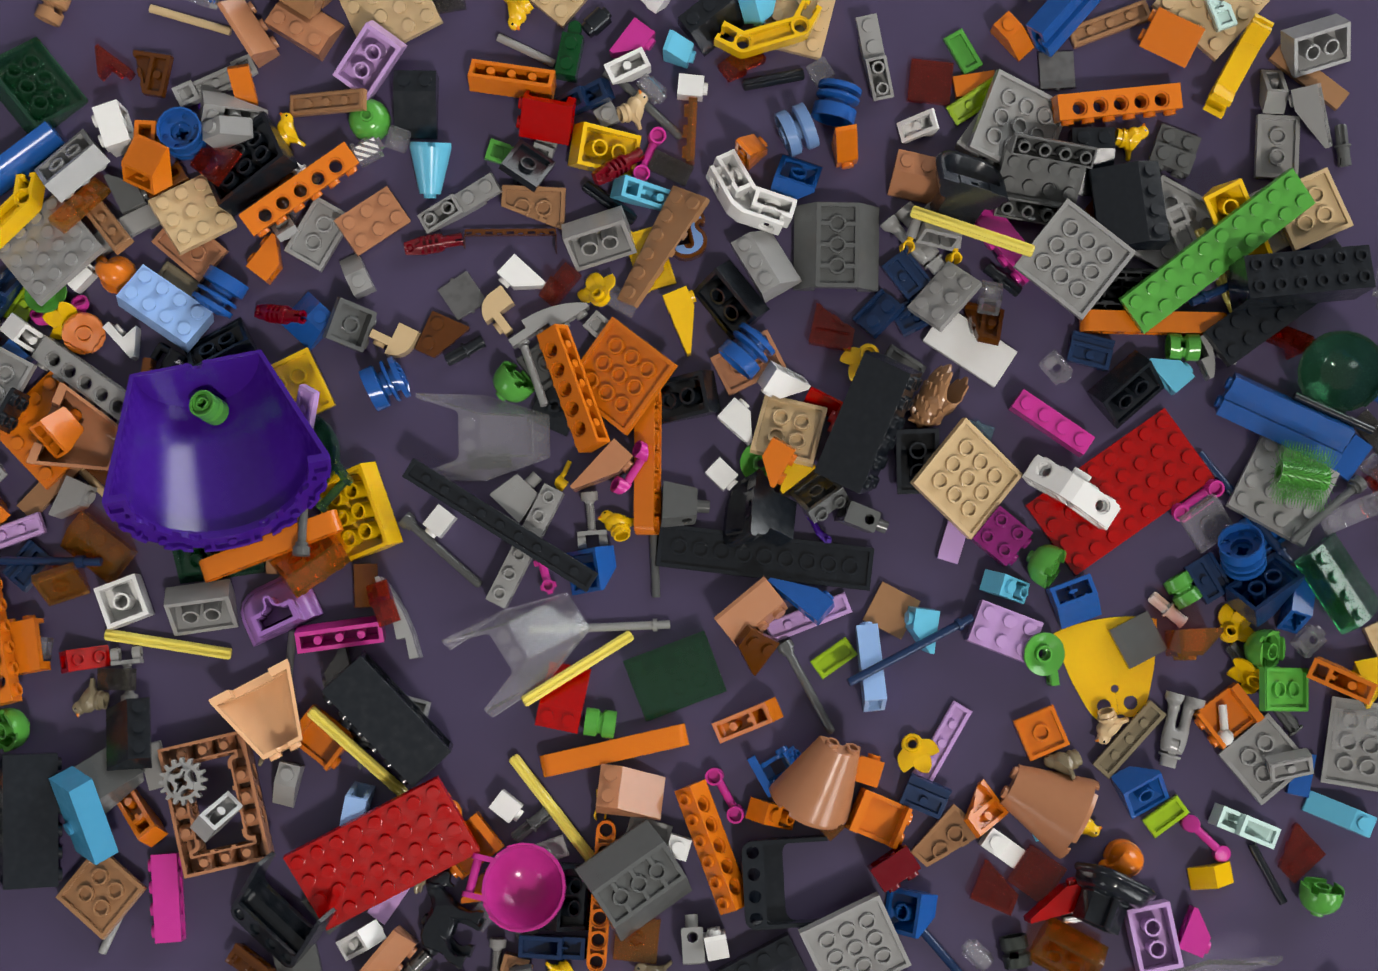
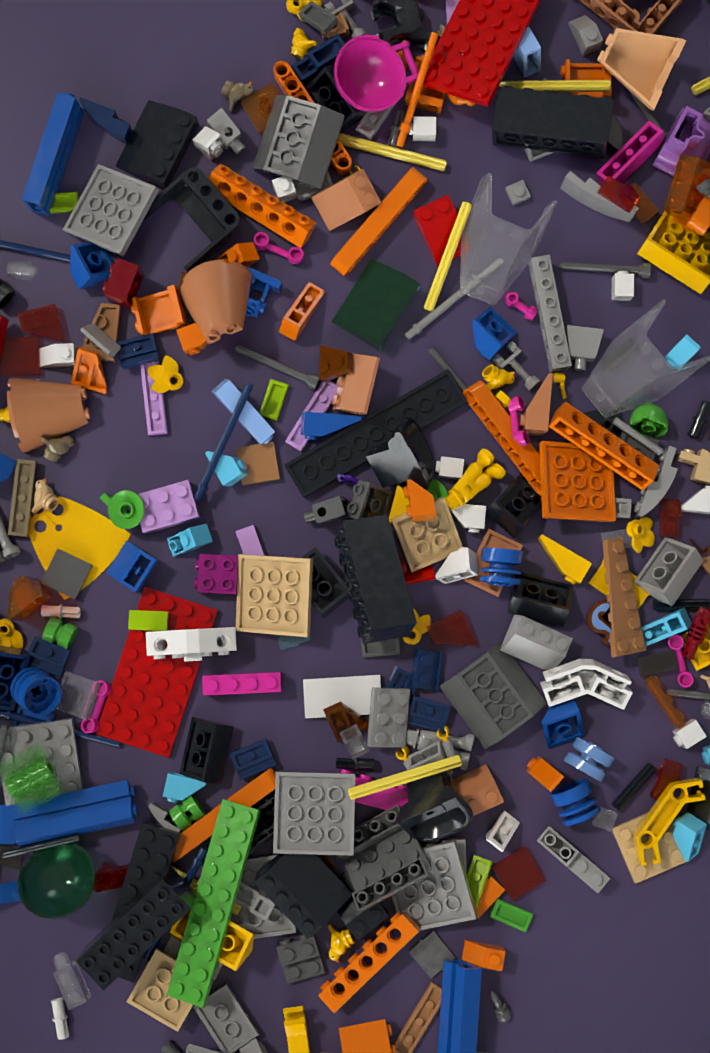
camera: 140 degrees right, 0 degrees up
(436, 420) = (682, 351): none -> medium azure slope
(465, 681) = (517, 192): none -> light grey plate
(500, 524) = (580, 310): black plate -> none
(523, 819) = (405, 127): none -> orange bar
(600, 723) = (402, 232): bright green wheel -> none
(627, 502) = (503, 399): none -> yellow tile
(681, 505) = (463, 423): dark grey torso -> none
(710, 446) = (474, 479): none -> yellow piece
(750, 150) = (611, 719): orange slope -> none
(937, 398) = (338, 638): medium nougat head -> none
(952, 830) = (101, 339): none -> light grey slope
(1041, 732) = (88, 456): orange plate -> none
(1044, 564) = (172, 576): bright green cylinder -> none
(1052, 359) = (267, 720): clear brick -> none
(1095, 541) = (148, 620): none -> lime tile

